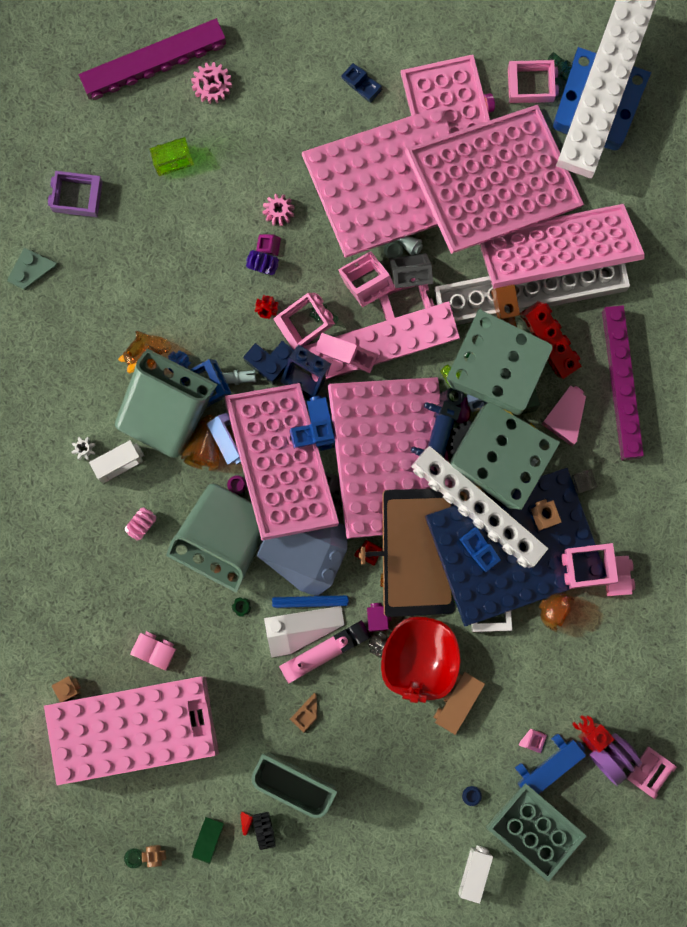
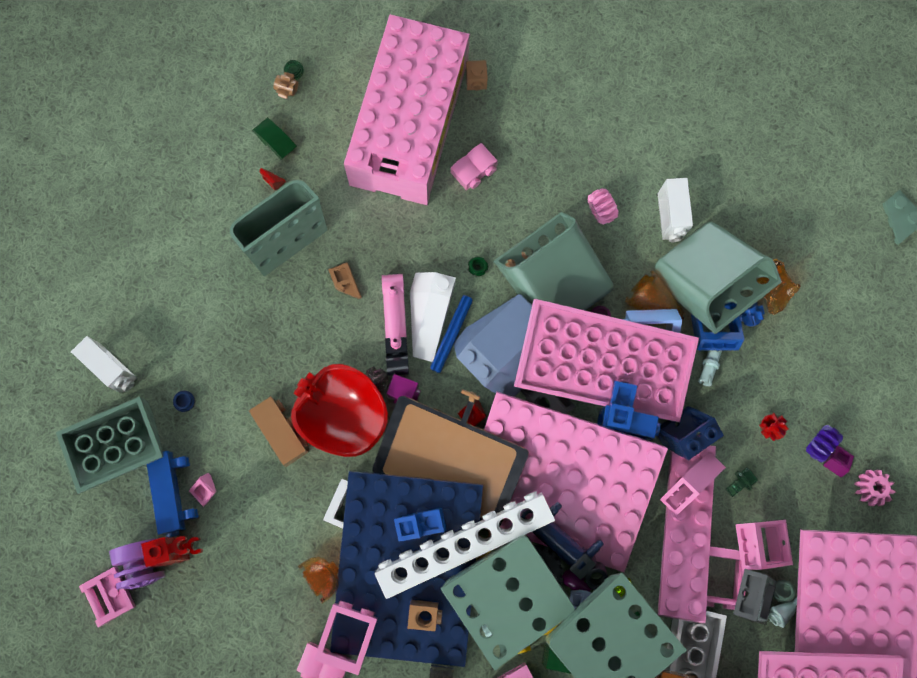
camera: 110 degrees right, 5 degrees down
(84, 453) = (700, 182): white gear -> none
(264, 830) = (253, 188): black tyre -> none
(267, 365) = (713, 398): dark blue brick -> none
(288, 329) = (745, 438): bright pink window -> none

